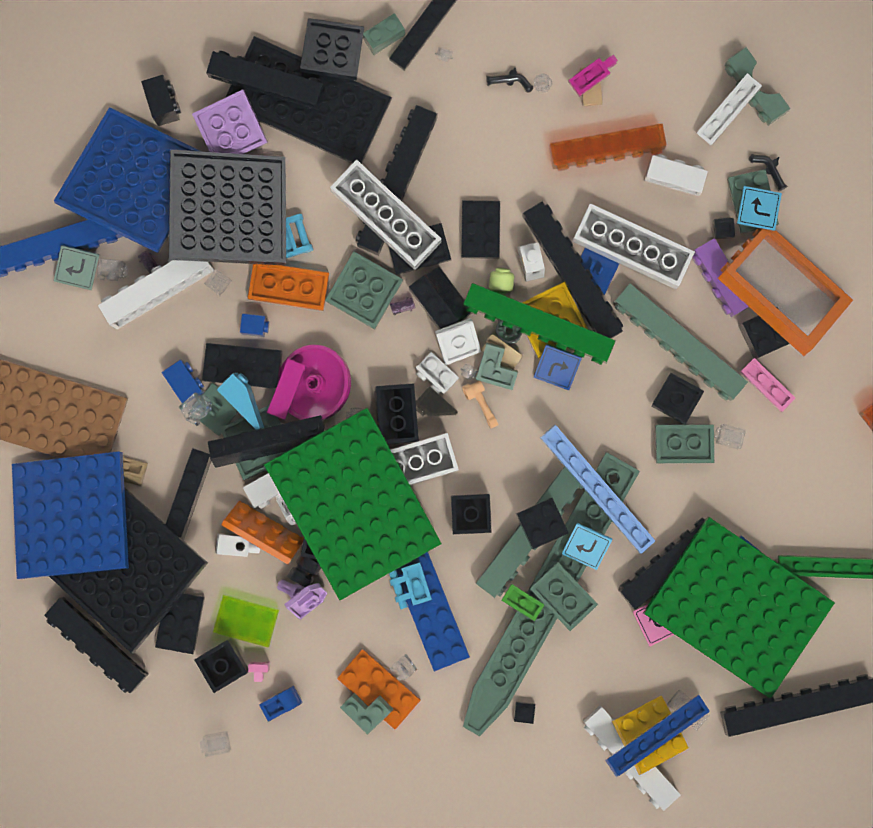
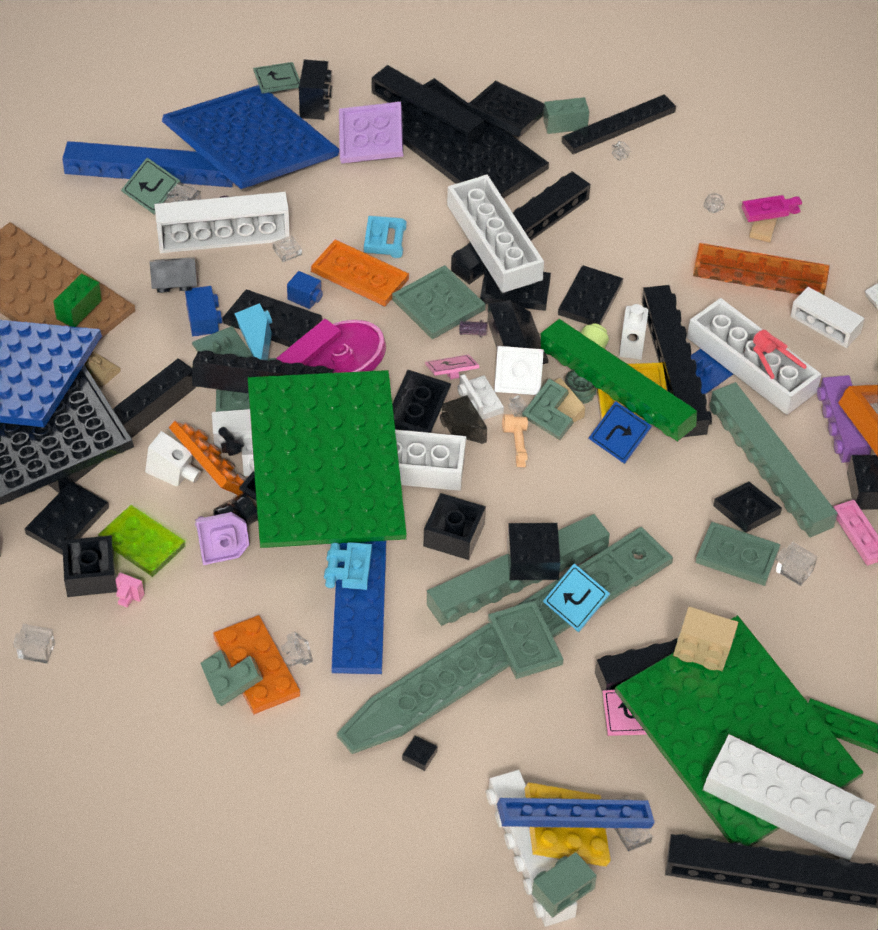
camera: 20 degrees right, 35 degrees down
(84, 424) = (77, 300): none -> green brick
(120, 93) = (277, 77): none -> sand green piece
(144, 361) = (173, 273): none -> brick
(196, 408) = (198, 325): clear brick -> none
(227, 208) = (332, 179): plate -> none
(271, 509) = (231, 444): none -> black plate
(281, 703) = (136, 632): blue plate -> none
(403, 355) = (452, 365): none -> bright pink piece
(510, 79) = (680, 191): black piece -> none
(522, 602) = (473, 627): bright green plate -> none
(597, 489) = (615, 549): light blue plate -> none
(644, 242) = (767, 343): none -> coral plant
(668, 790) = (563, 884): none -> sand green brick
(699, 563) = (705, 639): none -> tan piece
(724, 228) = (864, 376): black plate -> none
(794, 655) = (788, 797): none -> white brick

